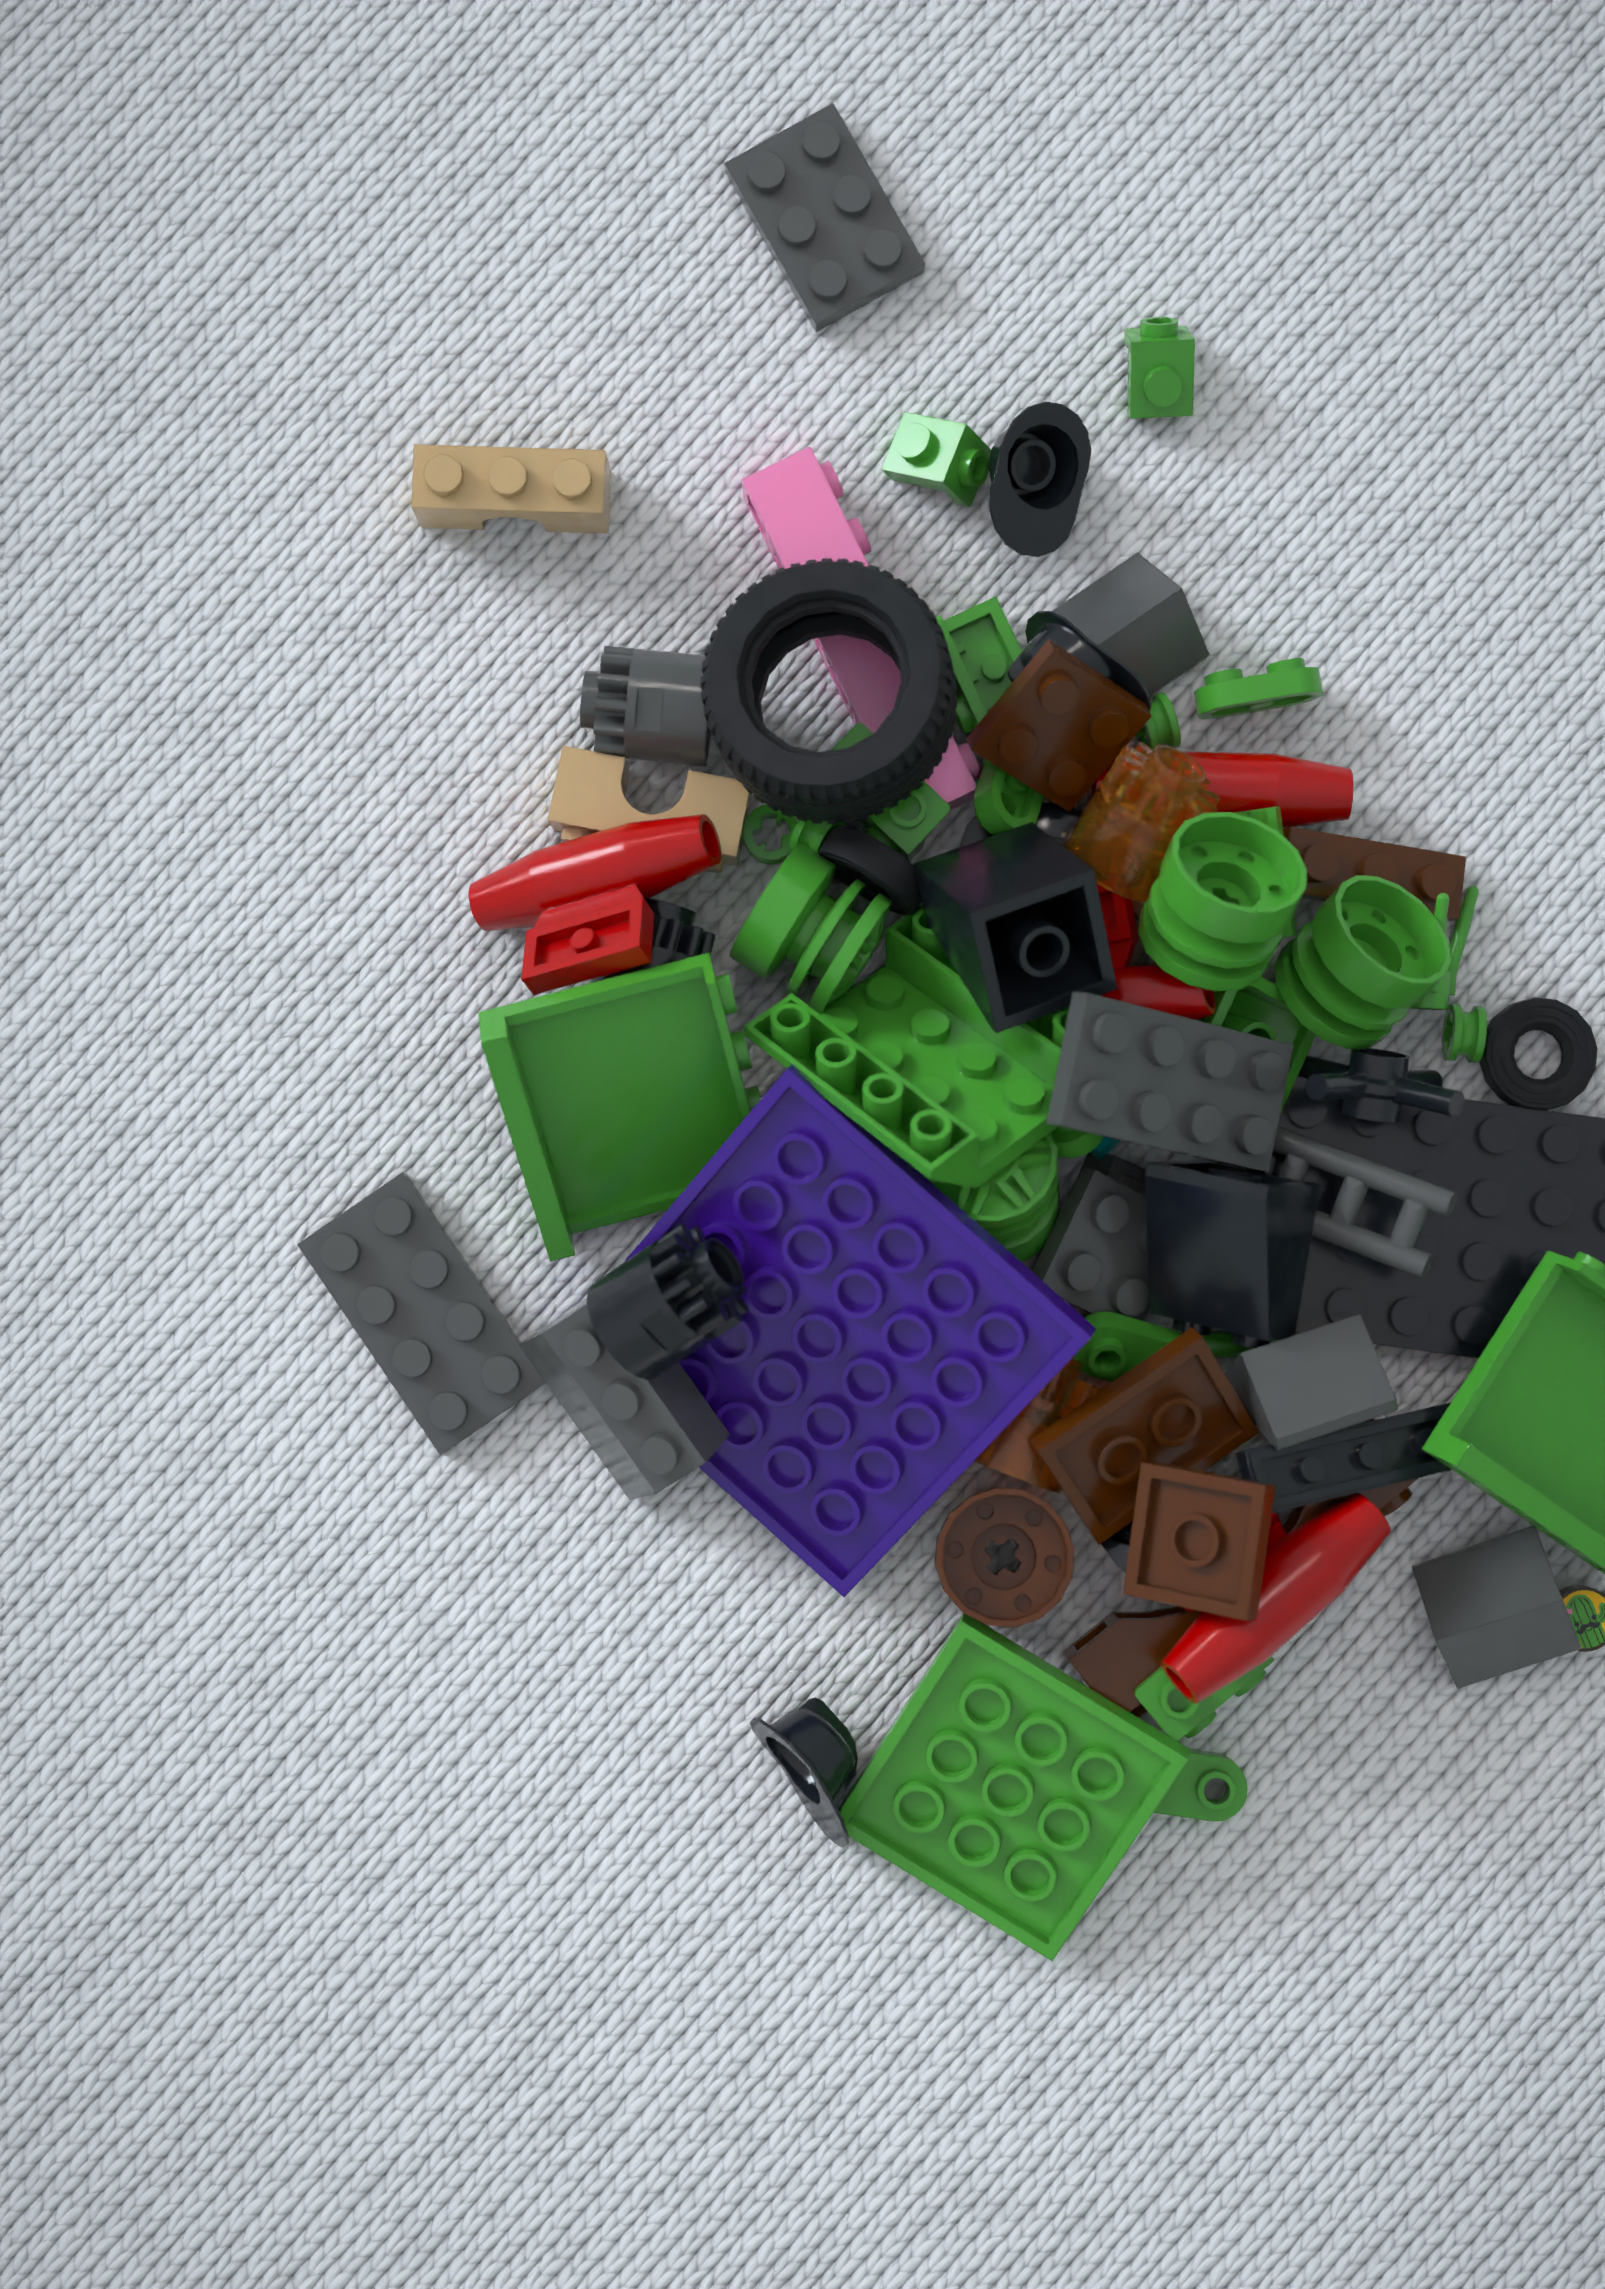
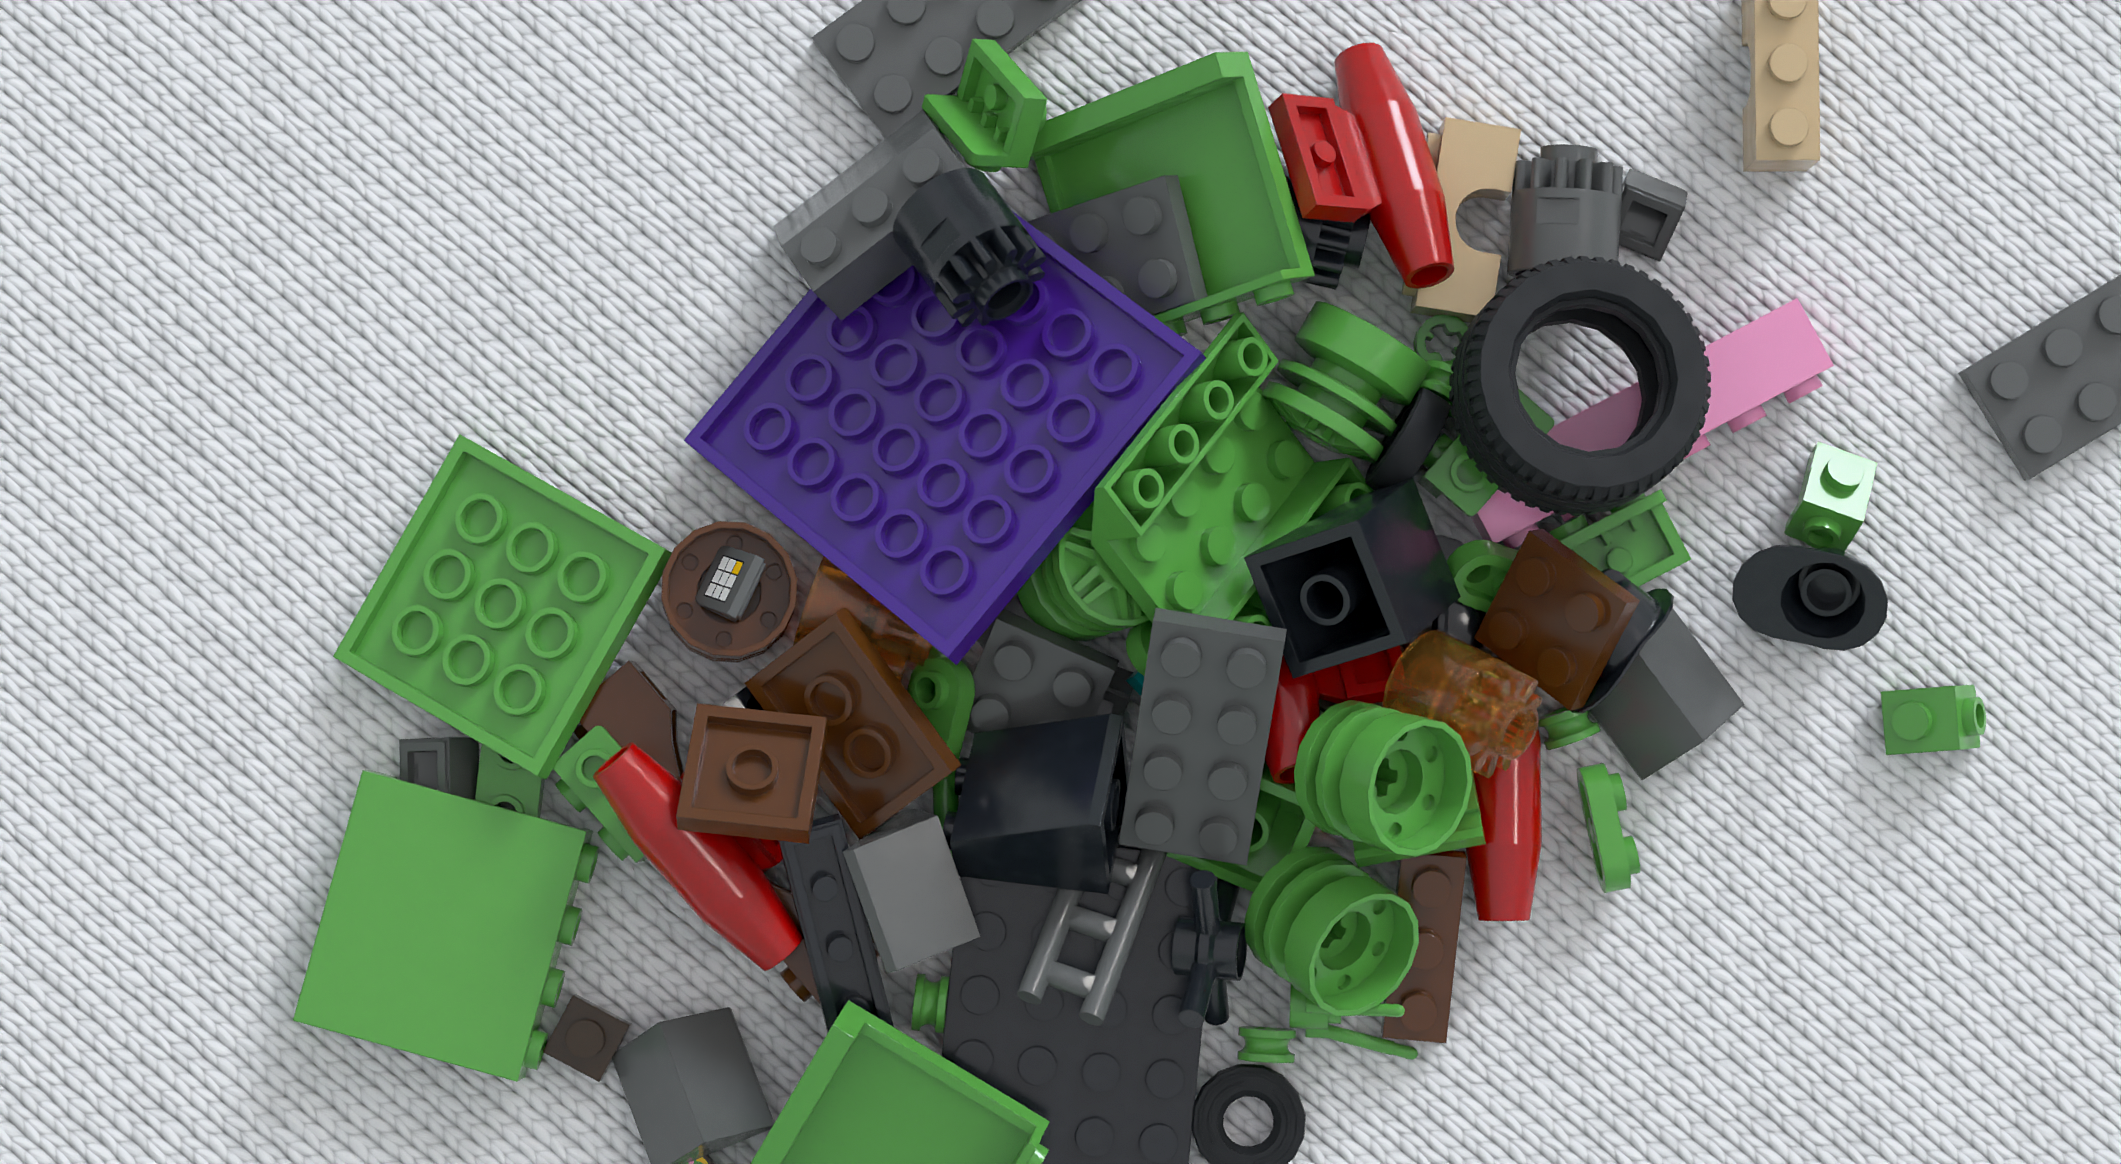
camera: 80 degrees right, 0 degrees up
(526, 1274) = (994, 111): none -> bright green bracket
(648, 623) = (1649, 213): none -> dark grey slope
(666, 1135) = (1134, 242): none -> dark grey plate
(816, 1758) = (525, 418): black piece -> none
(998, 1556) = (730, 582): none -> slope
(1168, 1856) = (441, 764): none -> dark grey slope
(1330, 1854) = (446, 927): none -> bright green panel
(1415, 1366) = (930, 1003): none -> bright green bush
(1439, 1712) = (587, 1037): none -> dark brown plate

